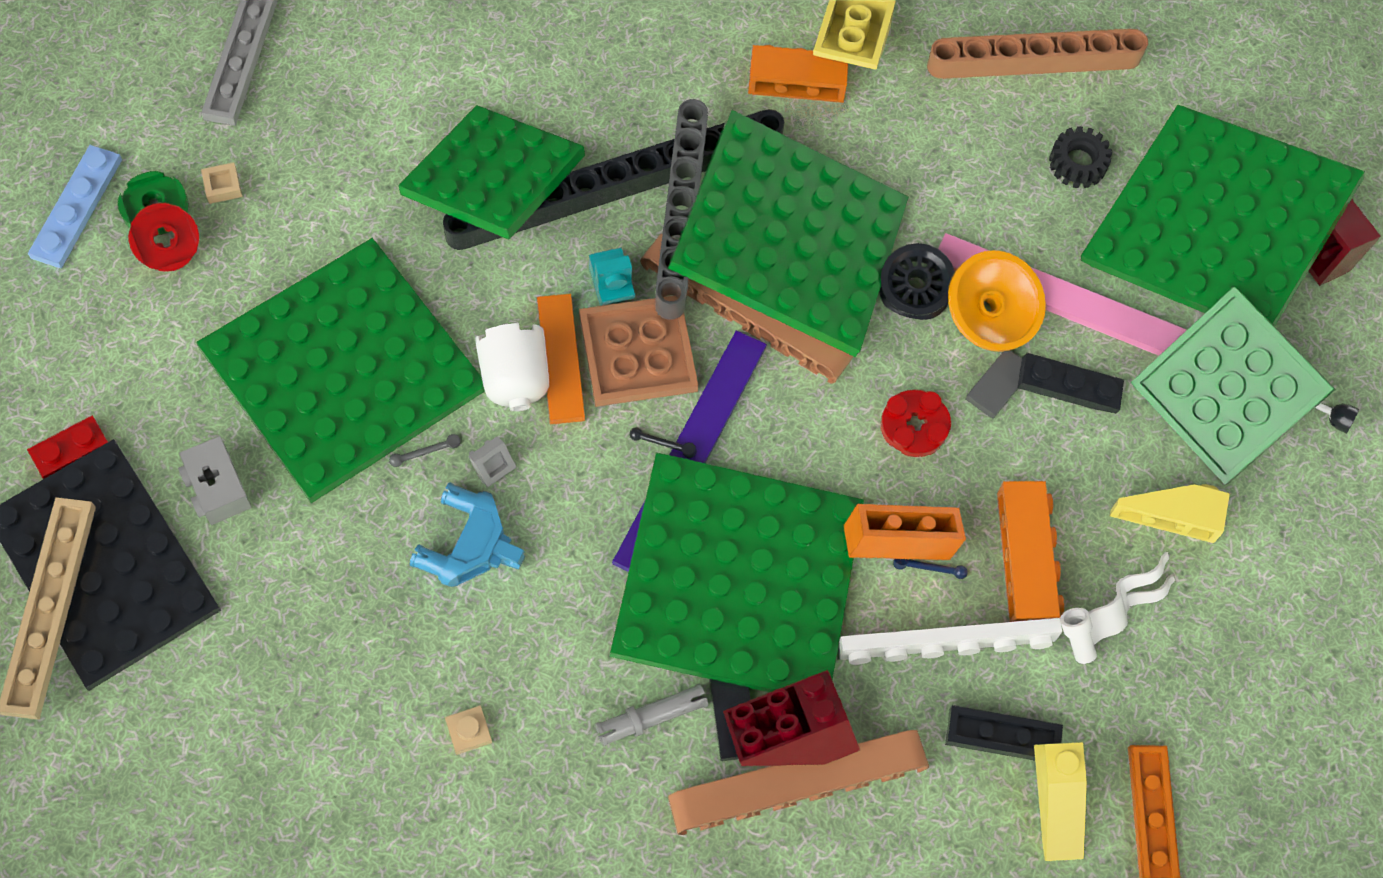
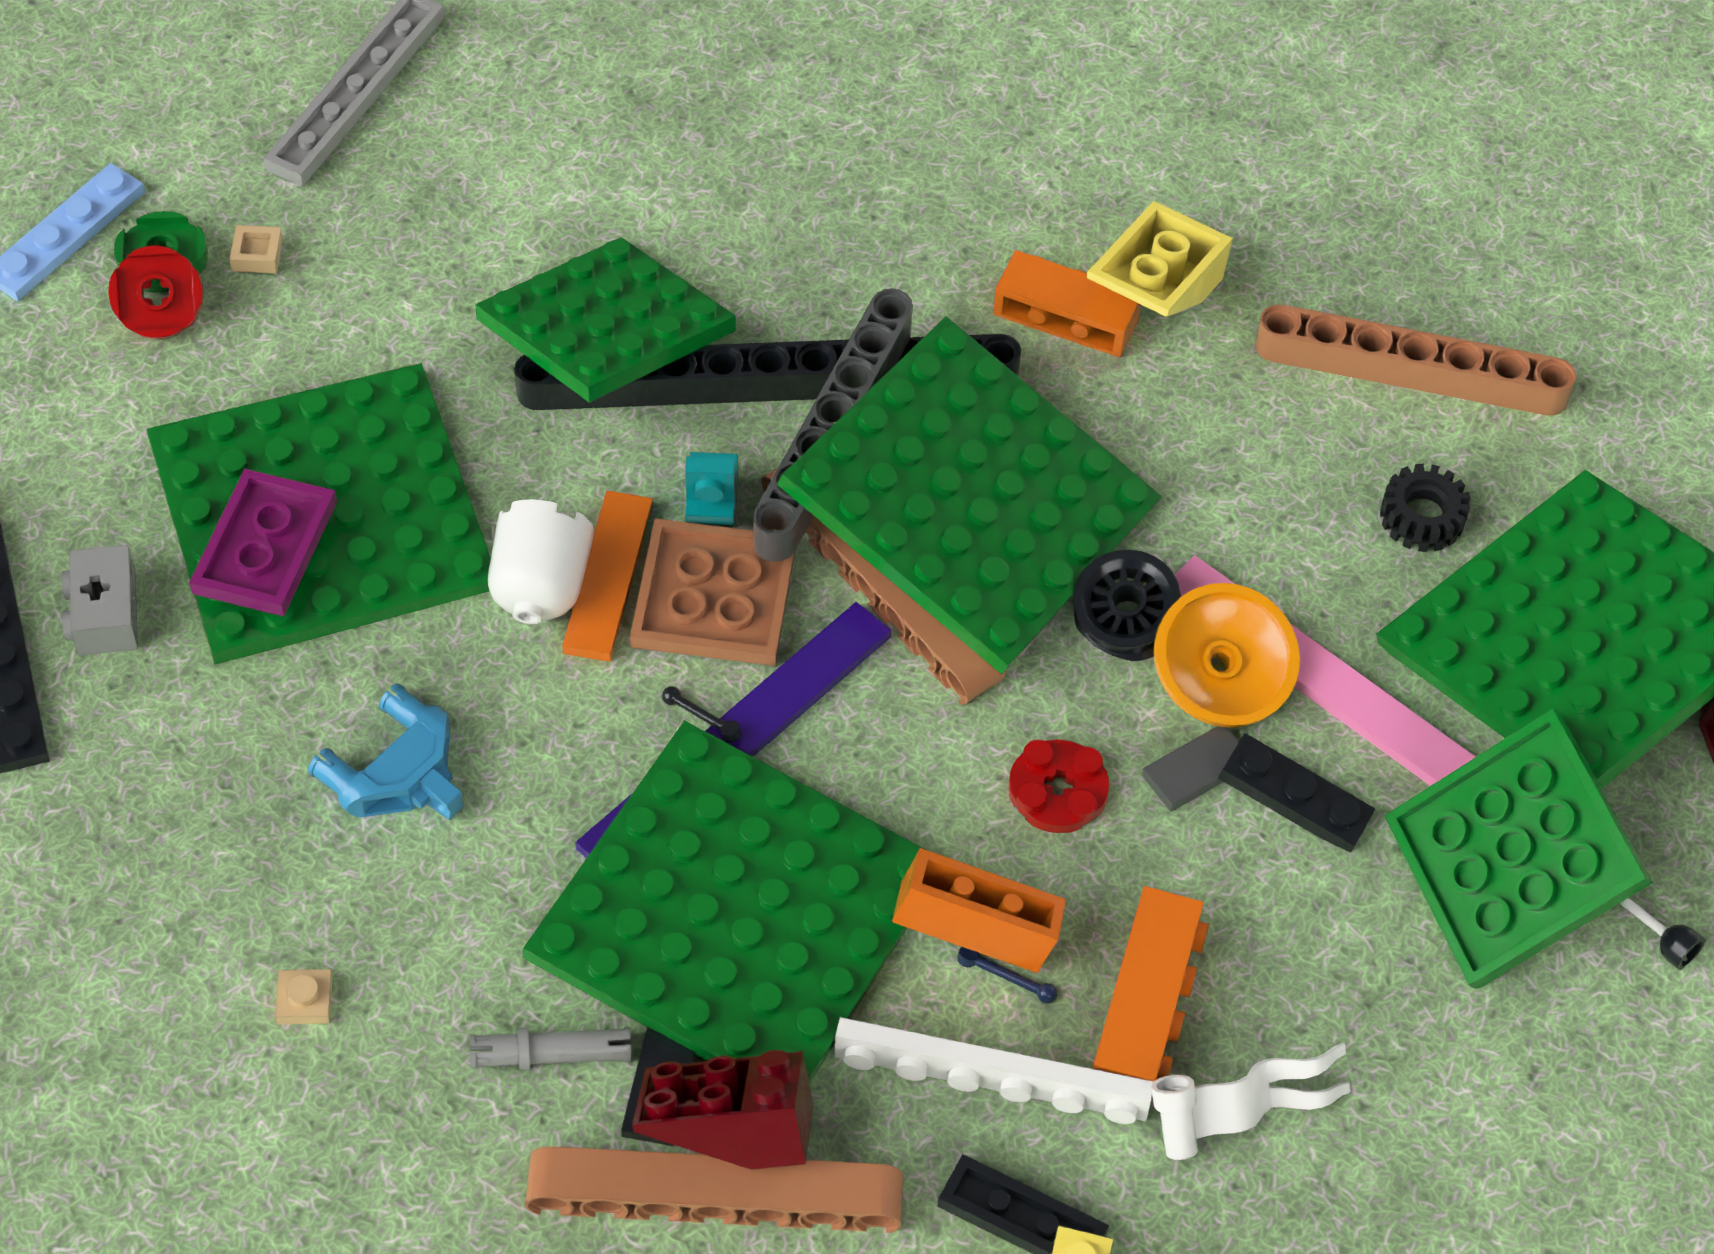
camera: 20 degrees right, 10 degrees down
(317, 407) = (263, 542): none -> magenta plate
(452, 441) = (426, 639): dark grey hinge -> none
(492, 461) = (465, 674): light grey tile -> none
(1184, 510) = (1385, 996): light yellow slope -> none

